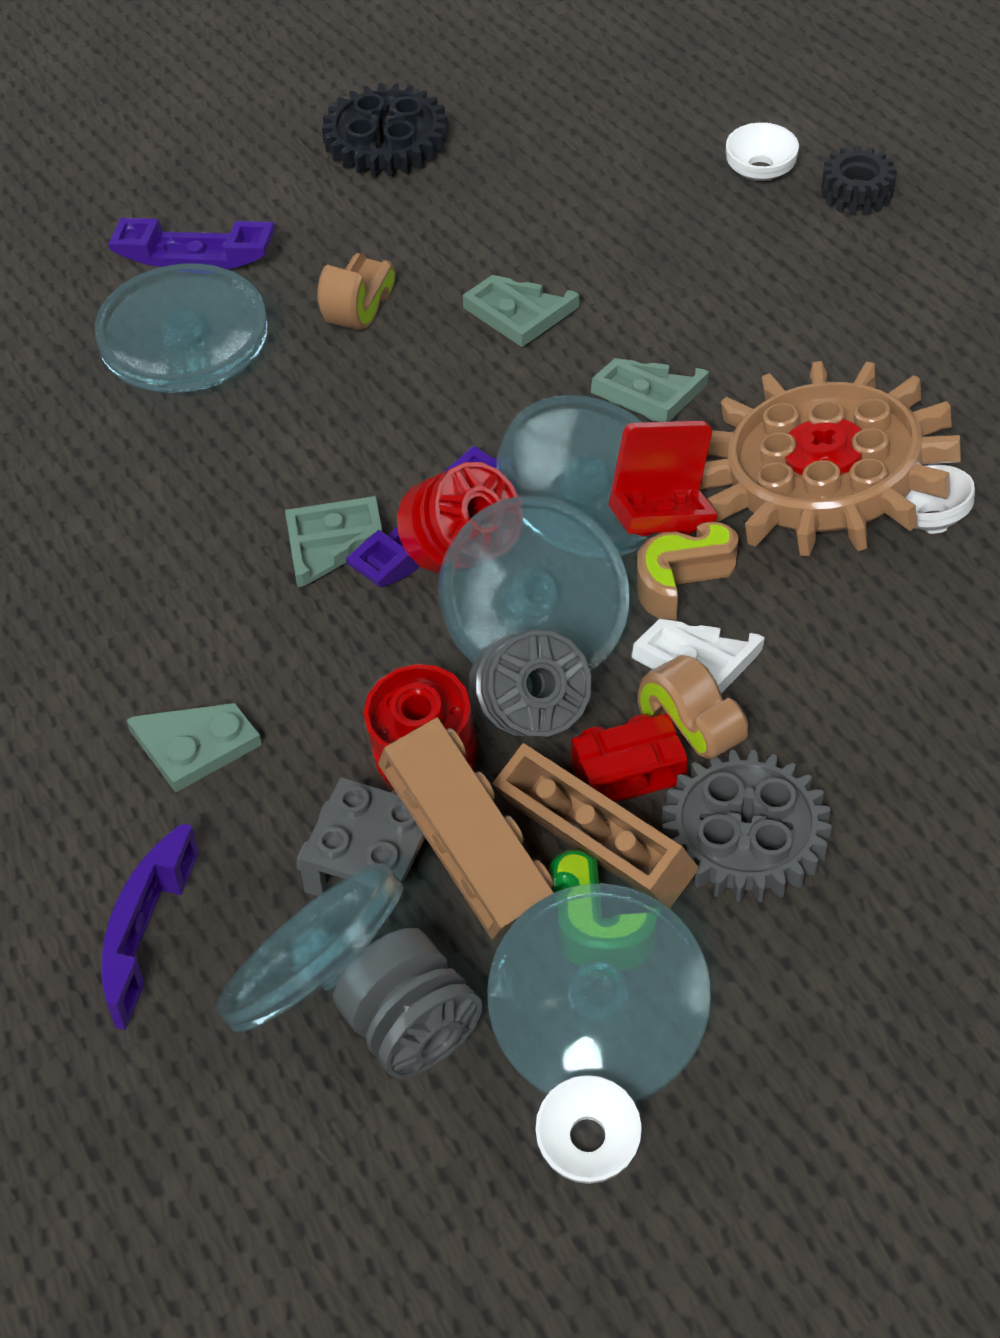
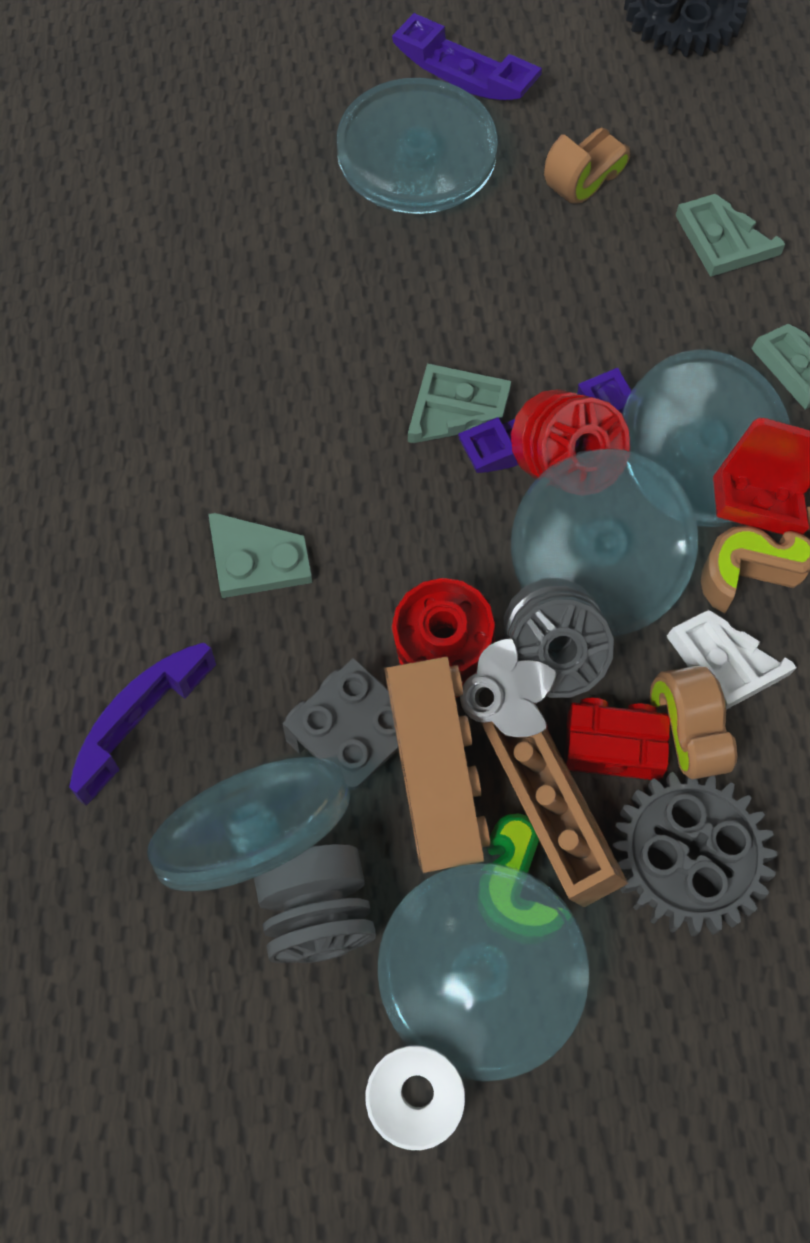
camera: 20 degrees right, 15 degrees up
(513, 734) = (515, 688): none -> light grey plate

